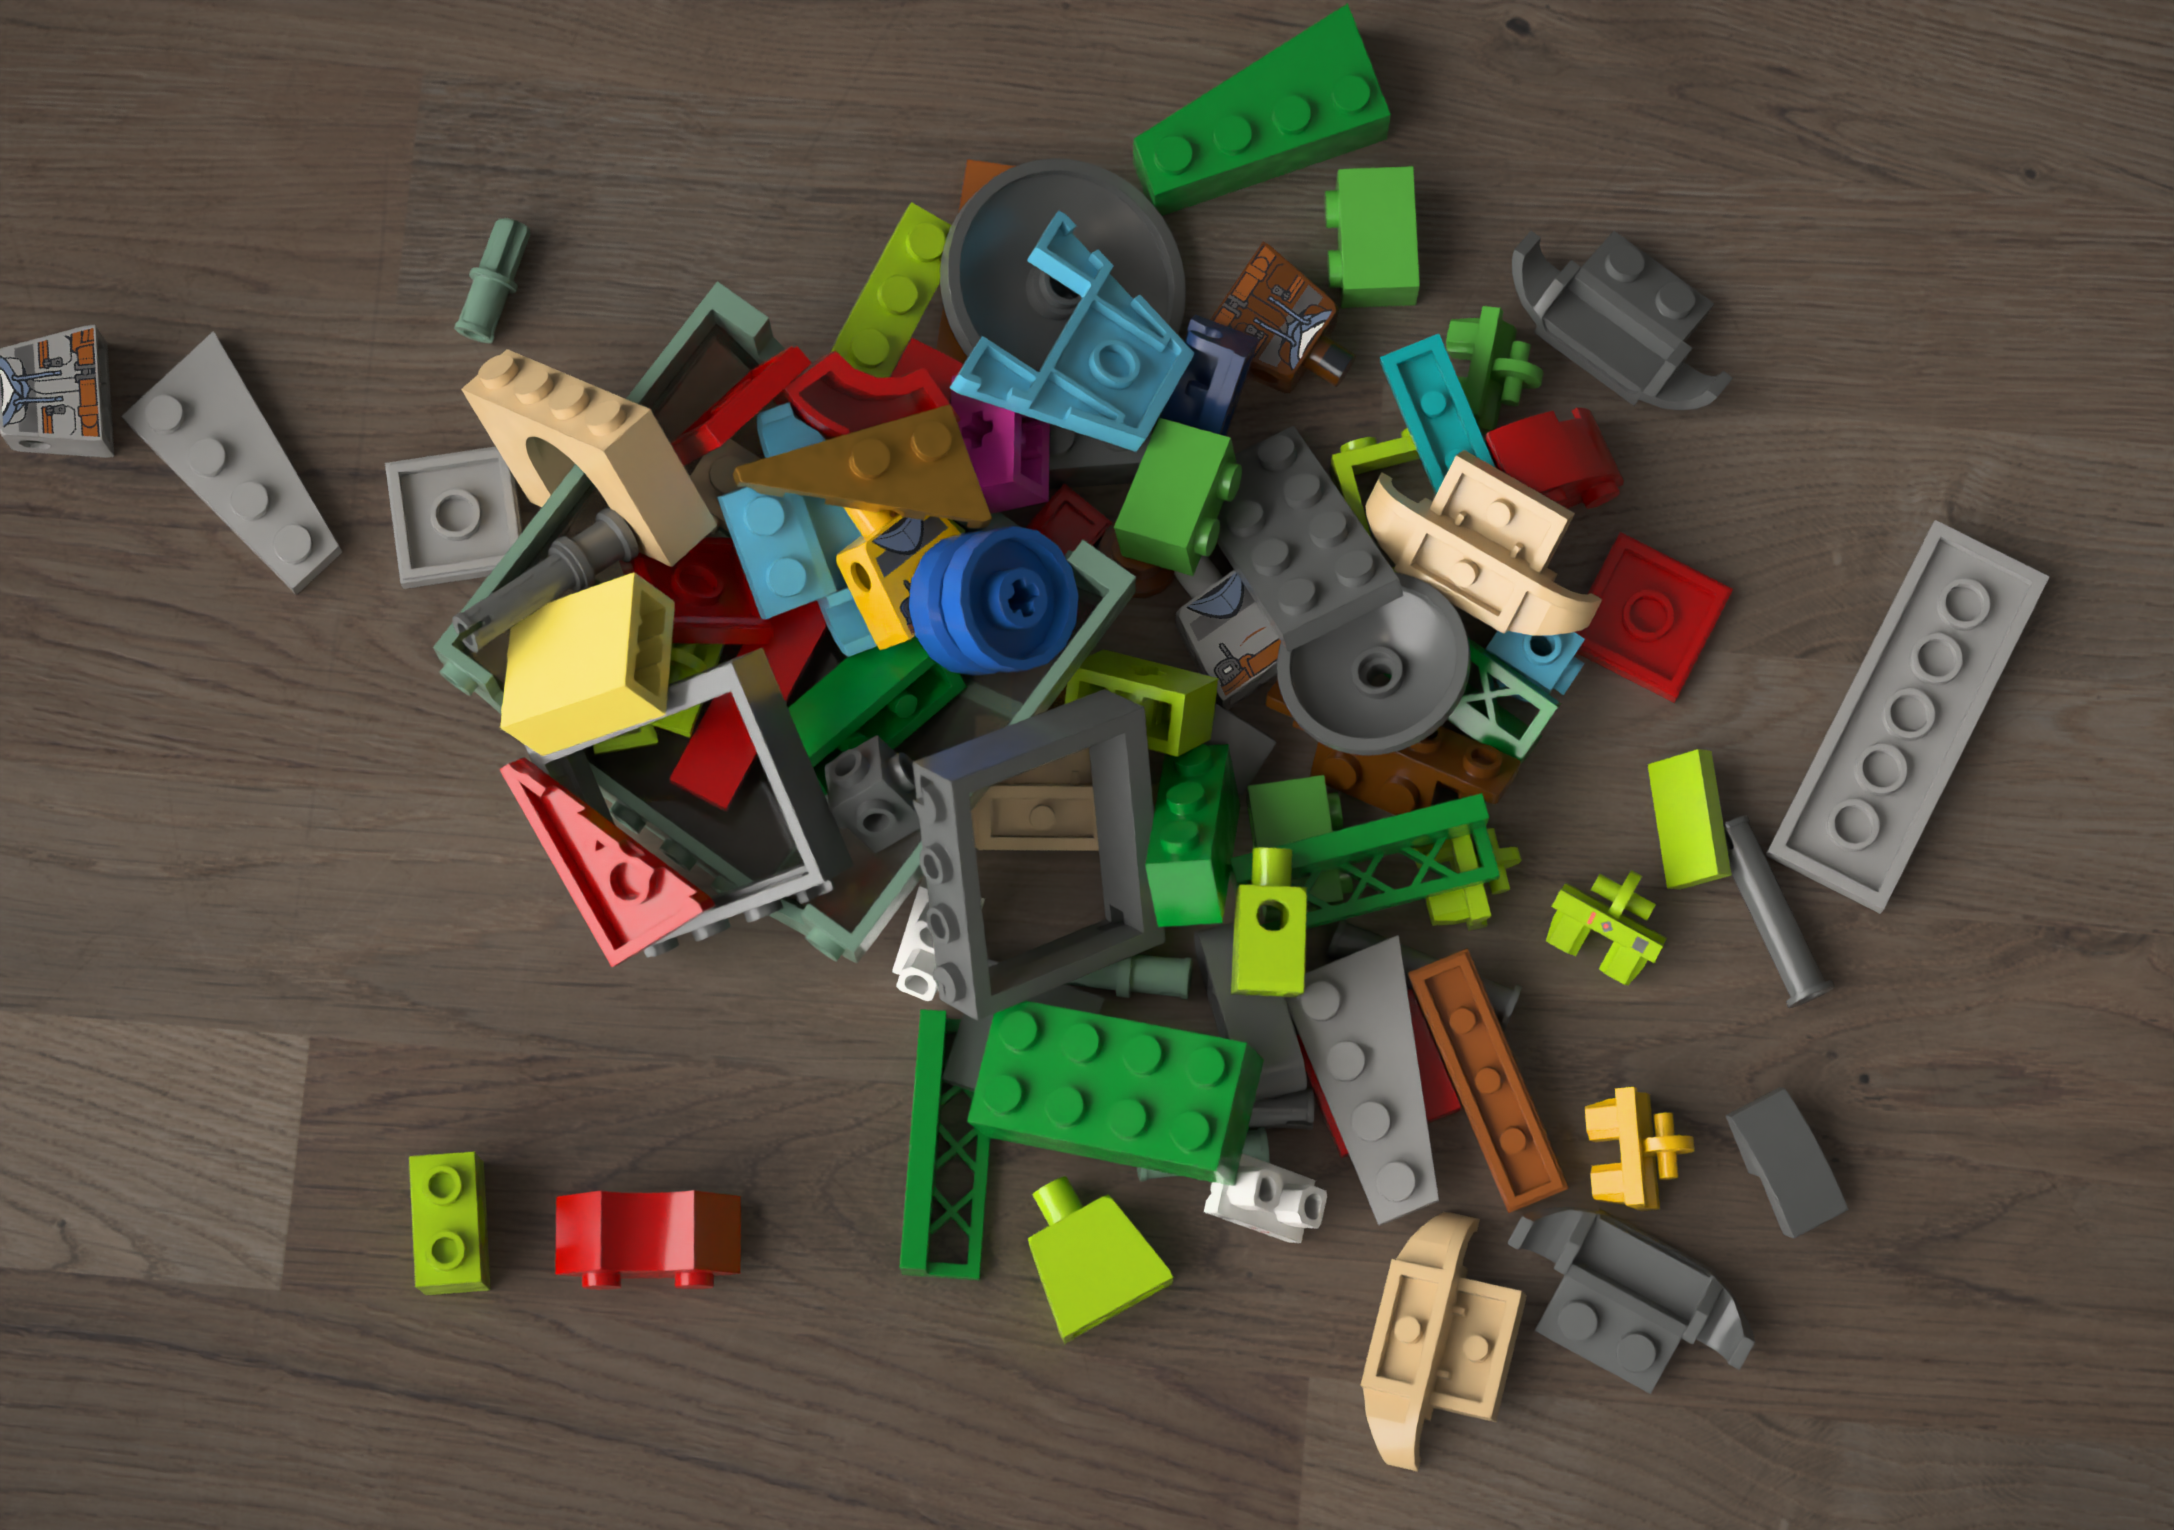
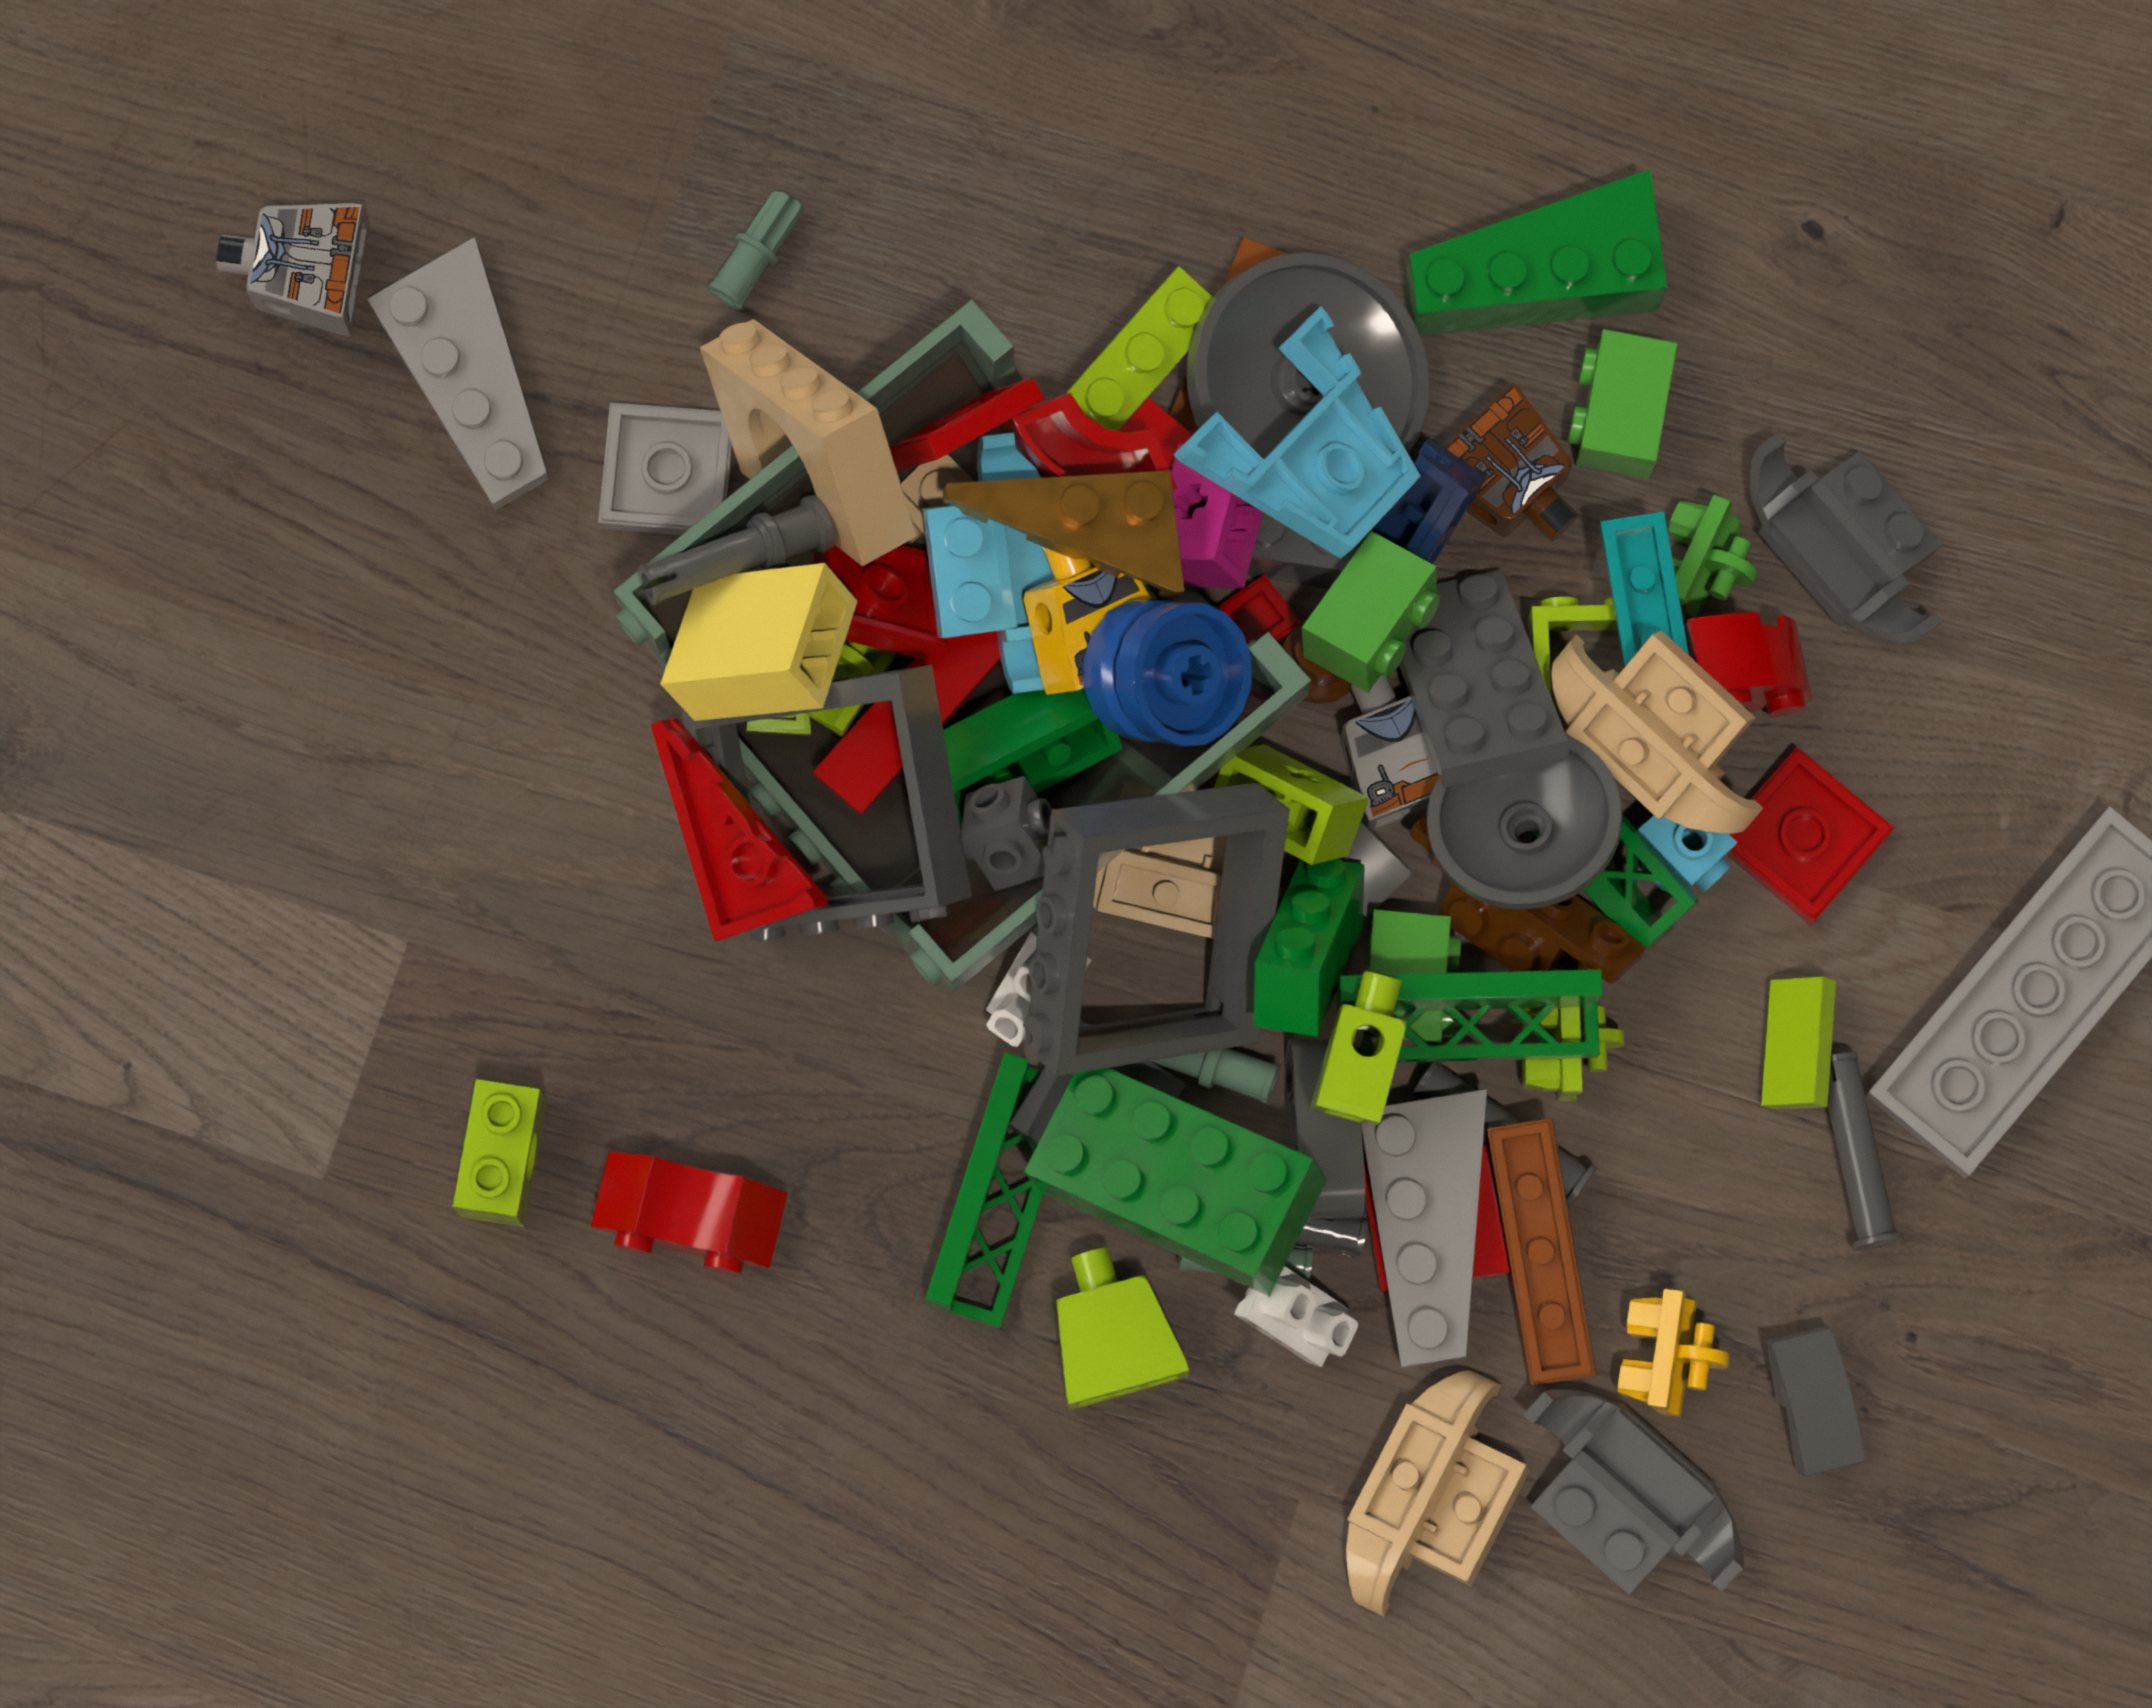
camera: 10 degrees right, 0 degrees up
(1580, 913) = (1671, 1109): lime hips -> none

